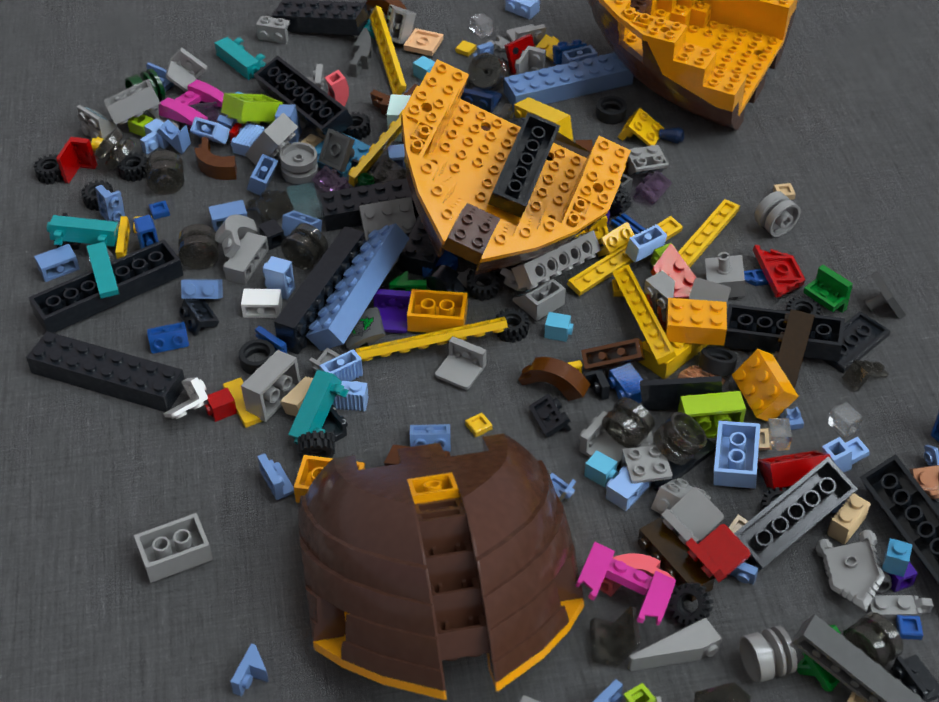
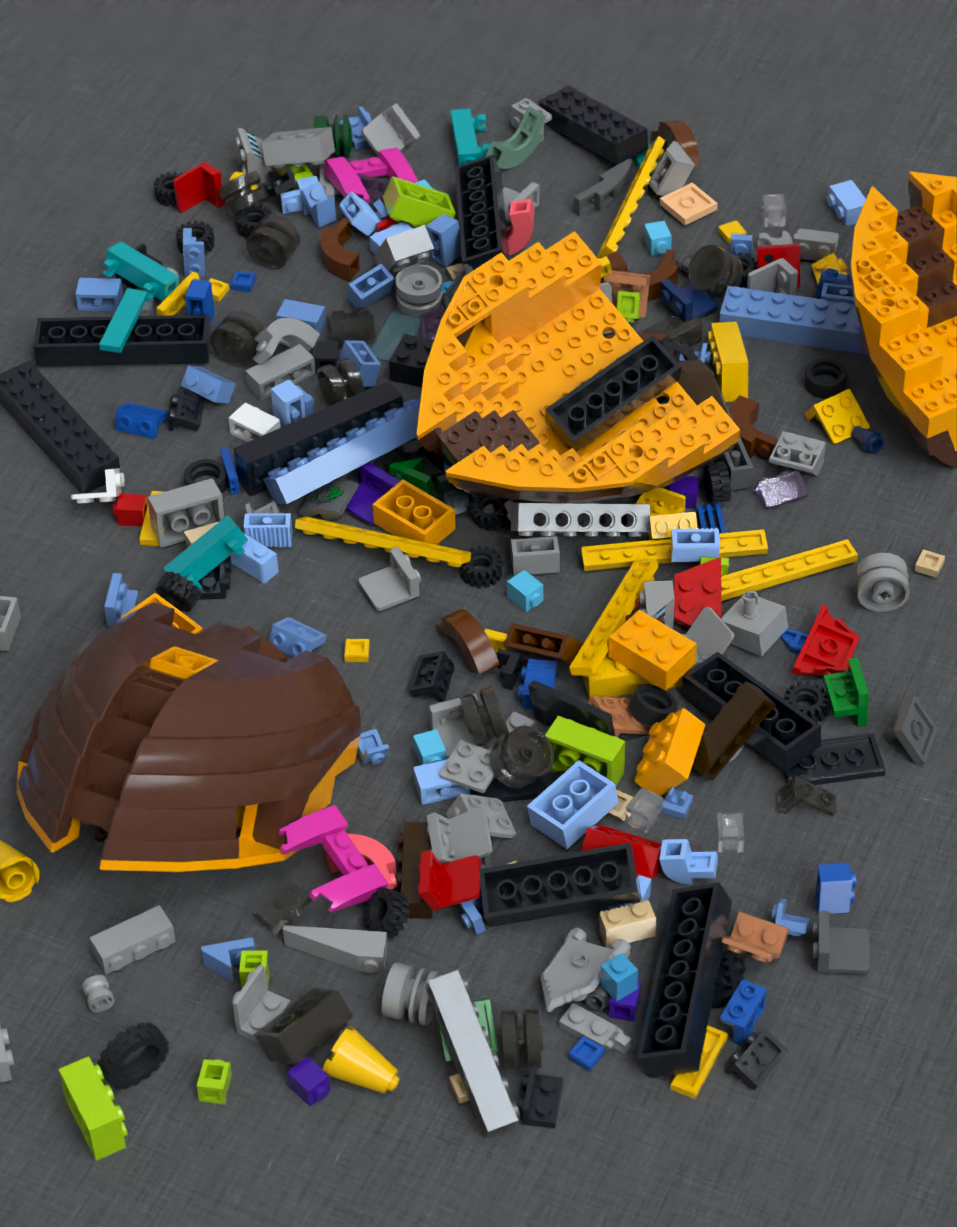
camera: 35 degrees right, 0 degrees up
(134, 130) = (281, 181): none -> black bracket
(281, 41) = (522, 143): none -> sand green arch

